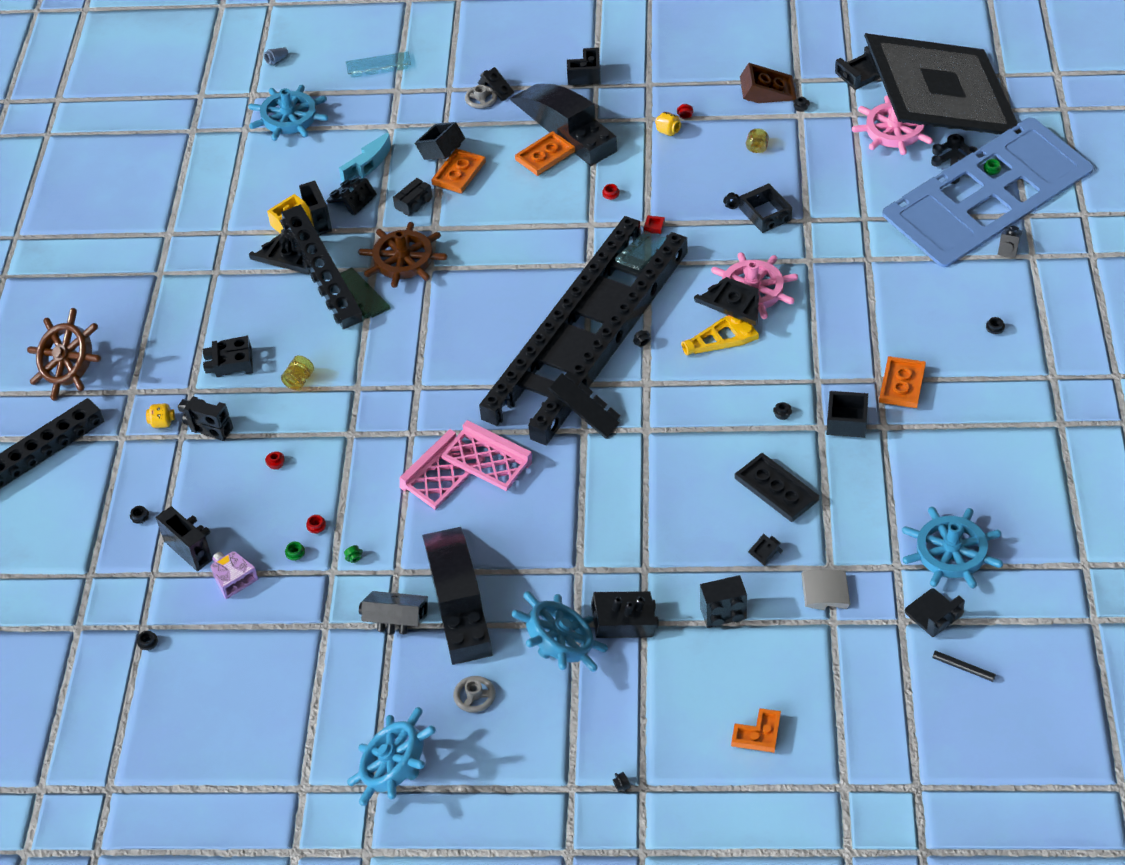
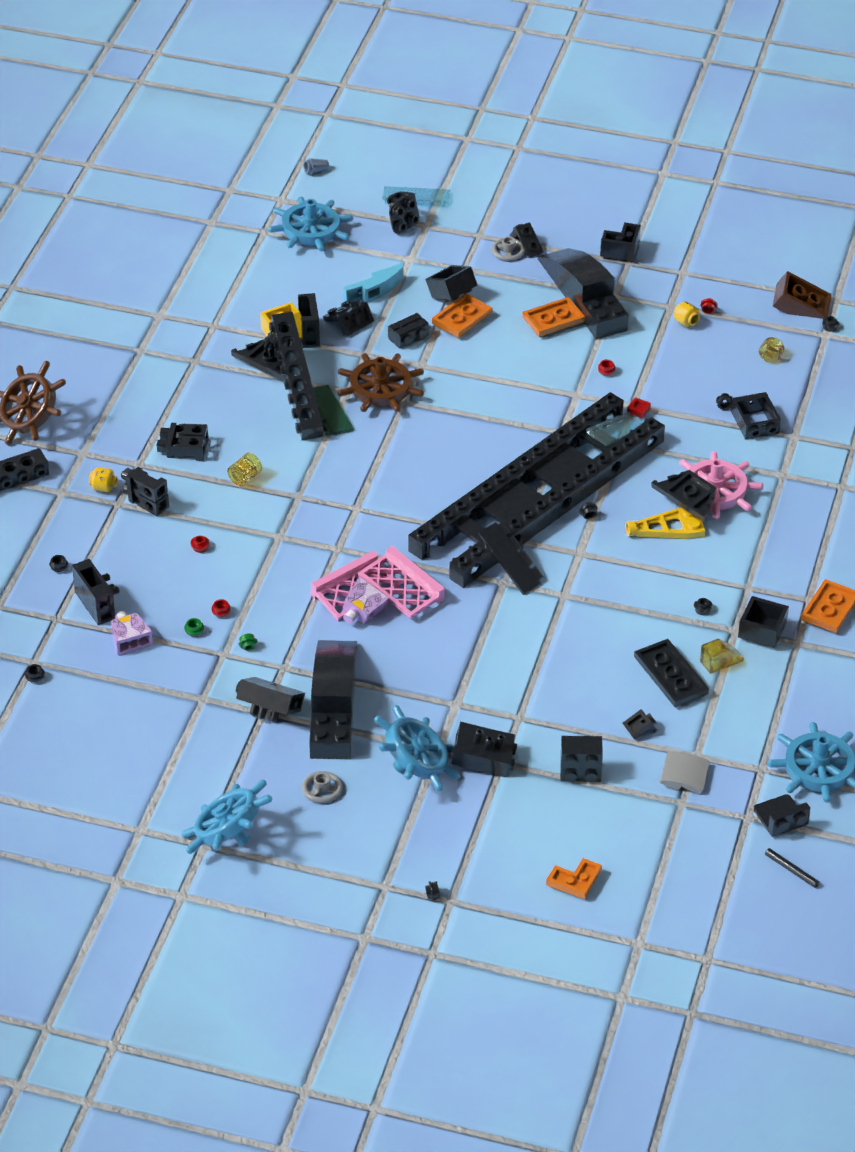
camera: 10 degrees right, 5 degrees down
(372, 81) = (403, 211): none -> black piece
(456, 485) = (363, 602): none -> lavender torso
(816, 458) = (719, 655): none -> clear yellow slope

